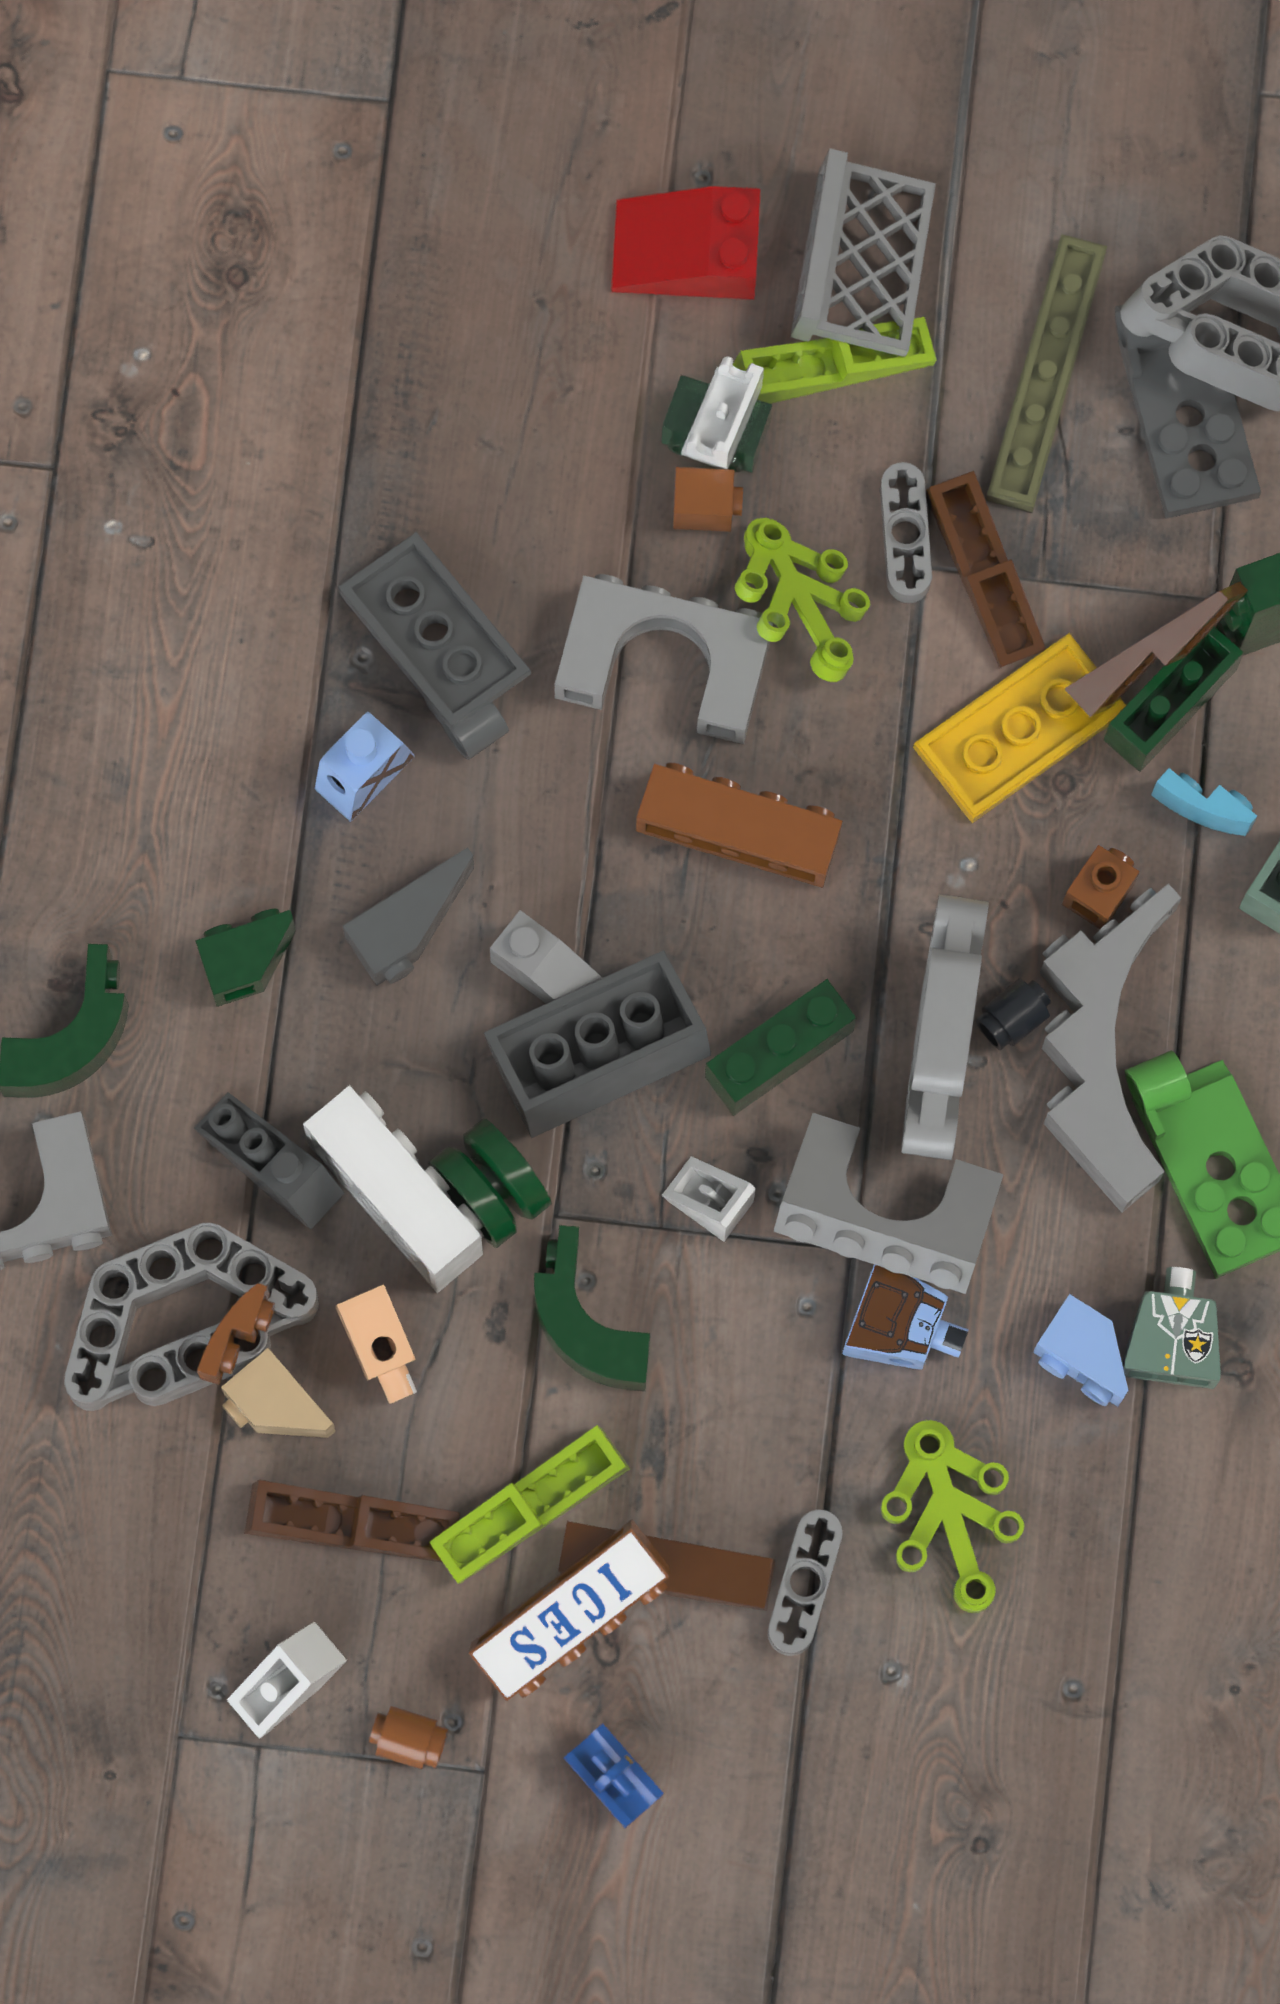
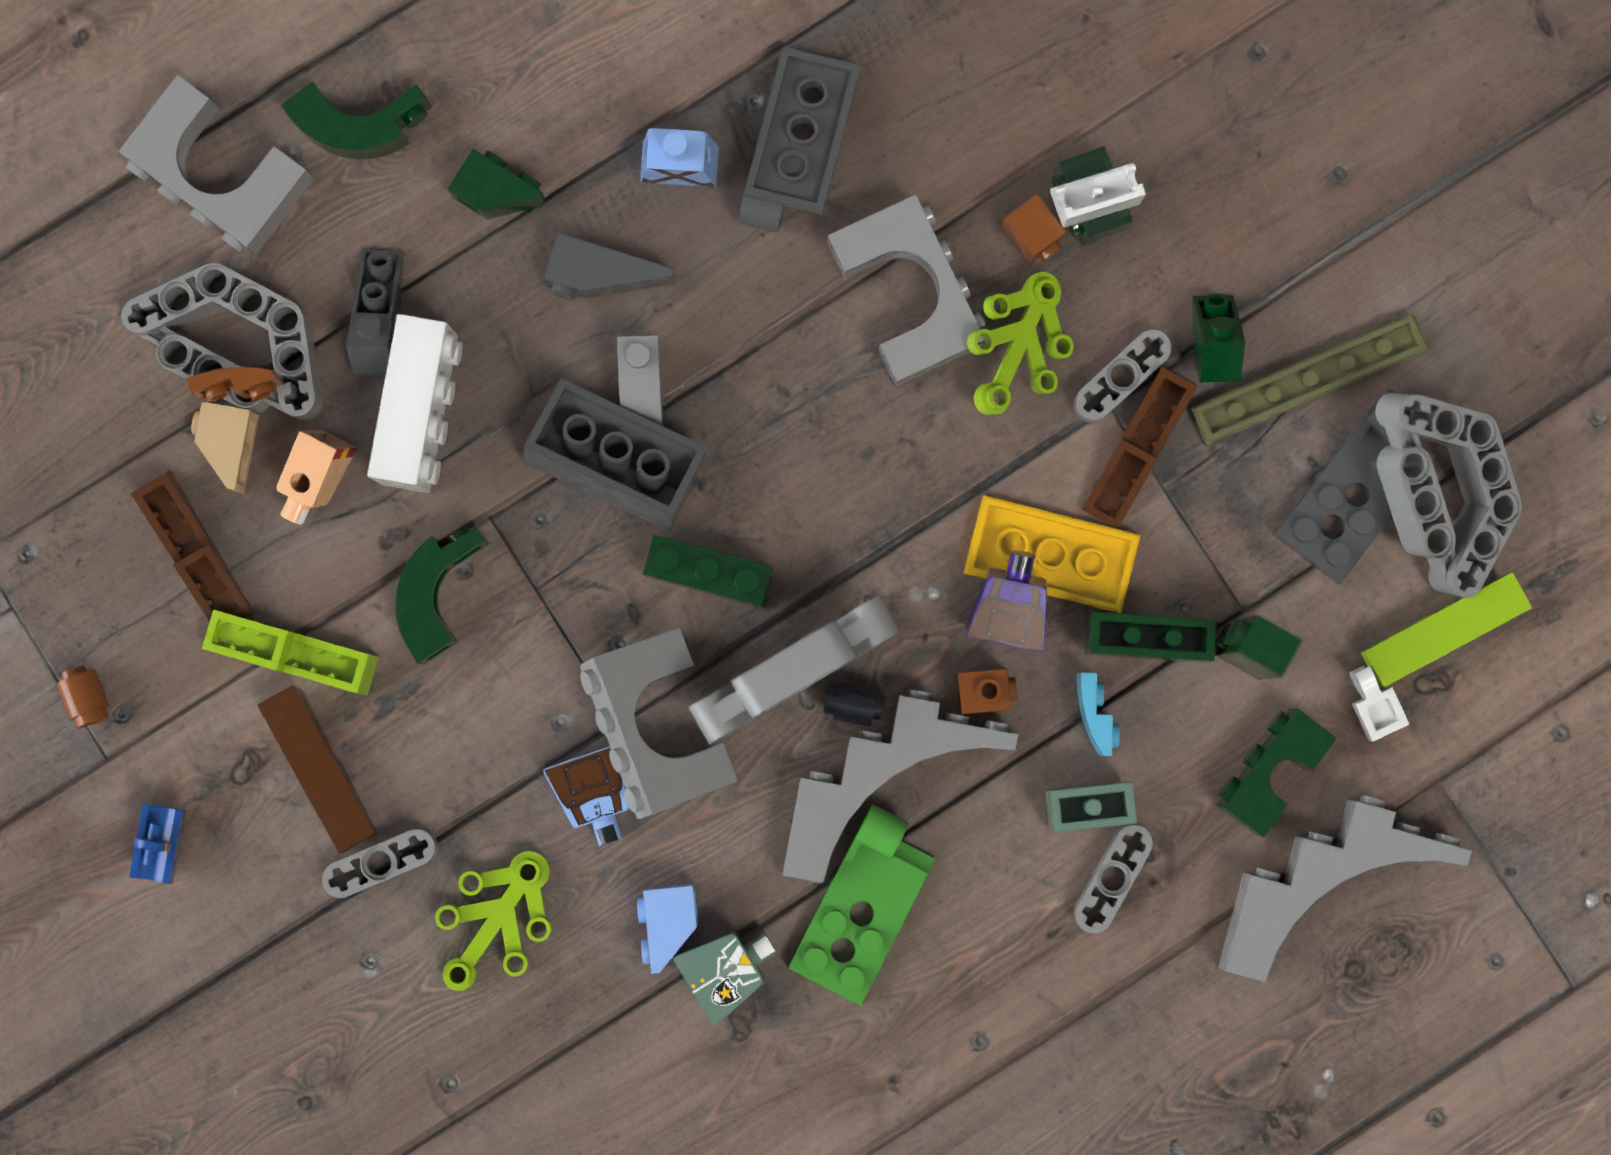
camera: 55 degrees right, 10 degrees up
(286, 1679) = (61, 592): white slope -> none
(495, 1178) = (465, 461): dark green wheel -> none
(570, 1611) = (234, 734): brick -> none
(688, 243) = (1203, 78): red slope -> none
(710, 1196) = (576, 605): white slope -> none
(739, 824) = (834, 426): dark orange brick -> none
(822, 255) = (1271, 166): light grey fence -> none
(829, 364) = (1203, 238): lime slope -> none
(943, 419) = (1217, 338): none -> dark green slope
(1041, 796) = (1011, 606): none -> torso
(1170, 643) = (1171, 608): reddish brown slope -> none

